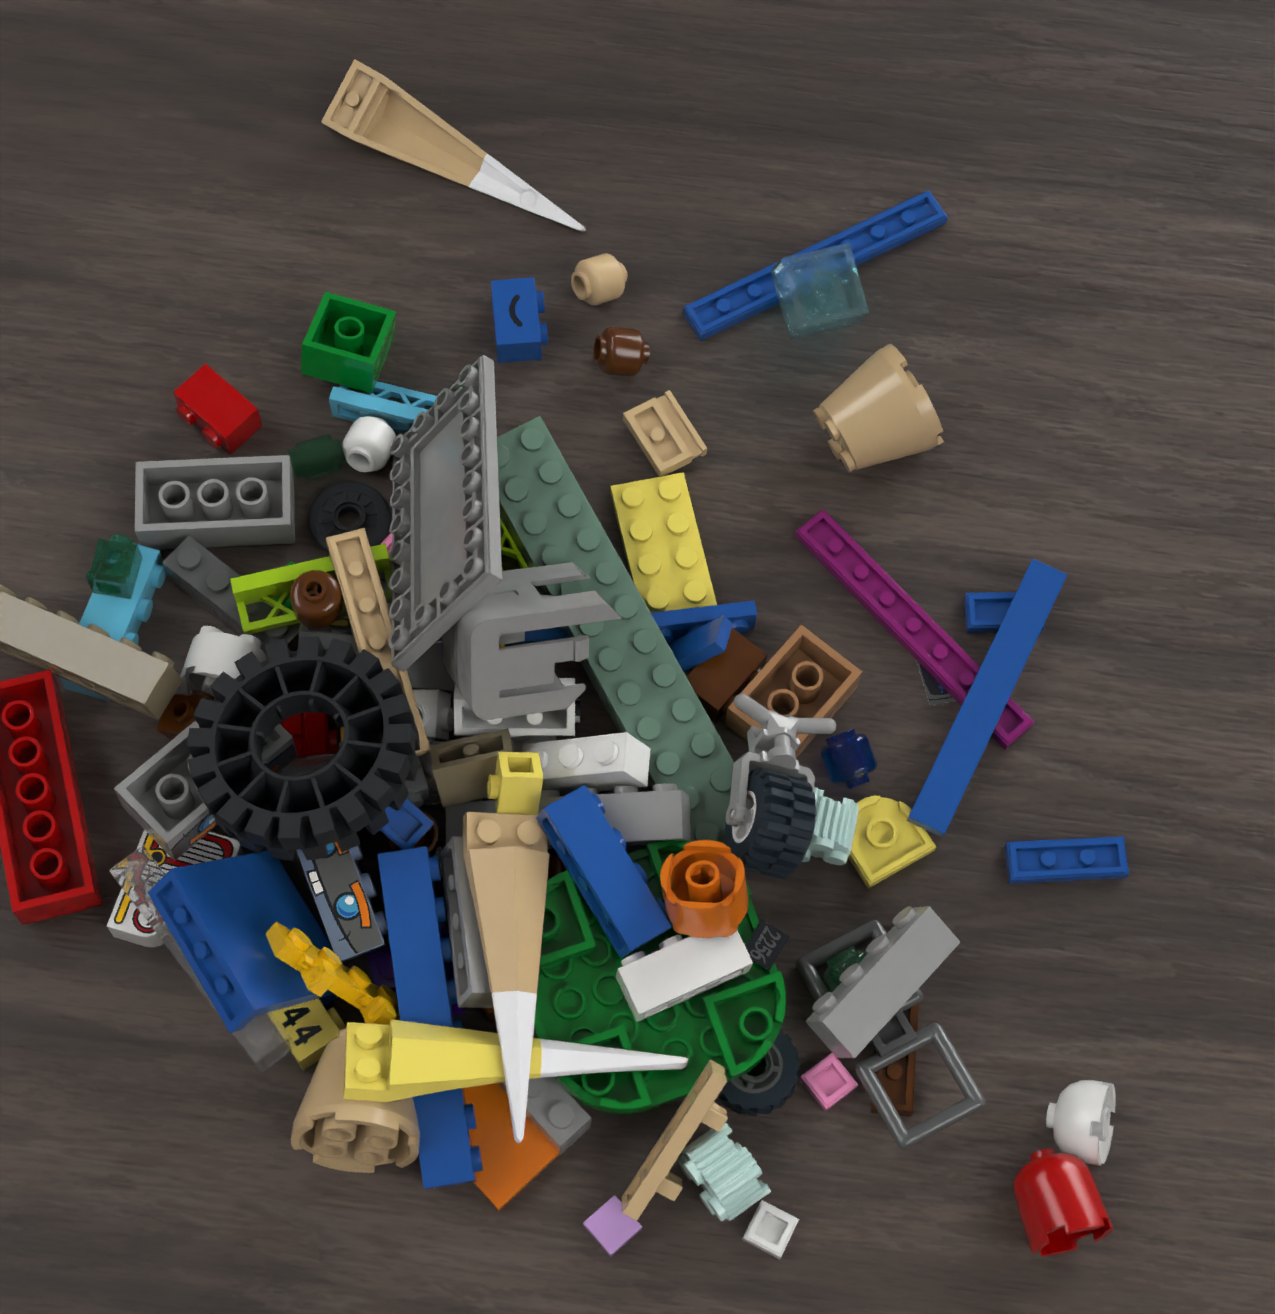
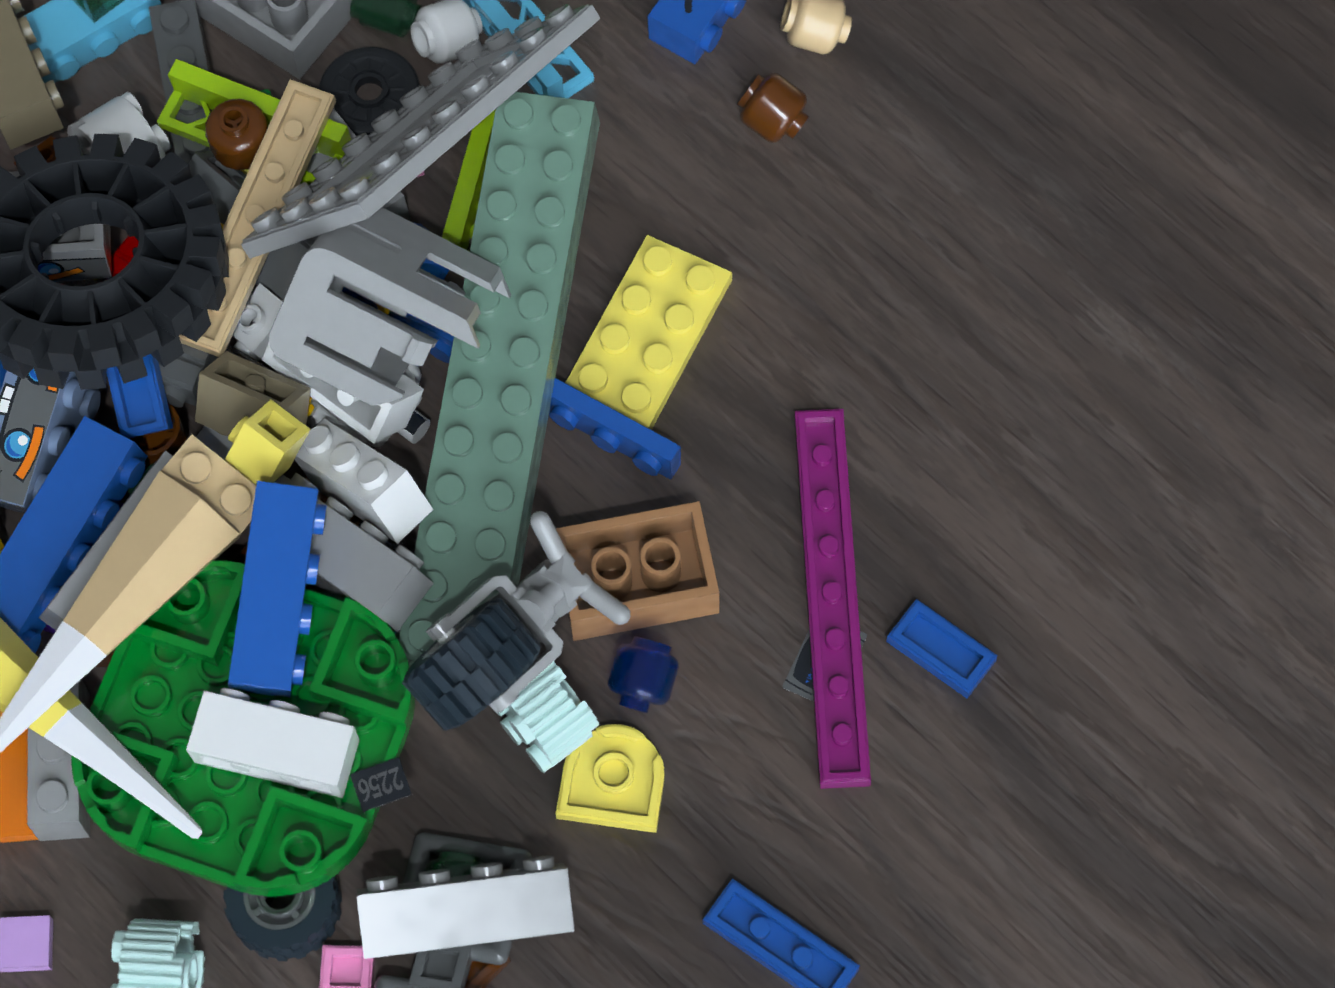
camera: 45 degrees right, 0 degrees up
(655, 1172) = (176, 890): tan hinge -> none
(664, 433) = (746, 220): tan plate -> none
(702, 643) = (583, 450): blue tile -> none
(704, 890) = (343, 676): orange brick -> none
(726, 675) = (591, 492): reddish brown brick -> none
(819, 291) = (1026, 182): clear light blue brick -> none
(866, 240) = (1062, 157): blue tile -> none
(879, 413) = (972, 348): tan cone -> none
(986, 698) = (839, 717): blue tile -> none

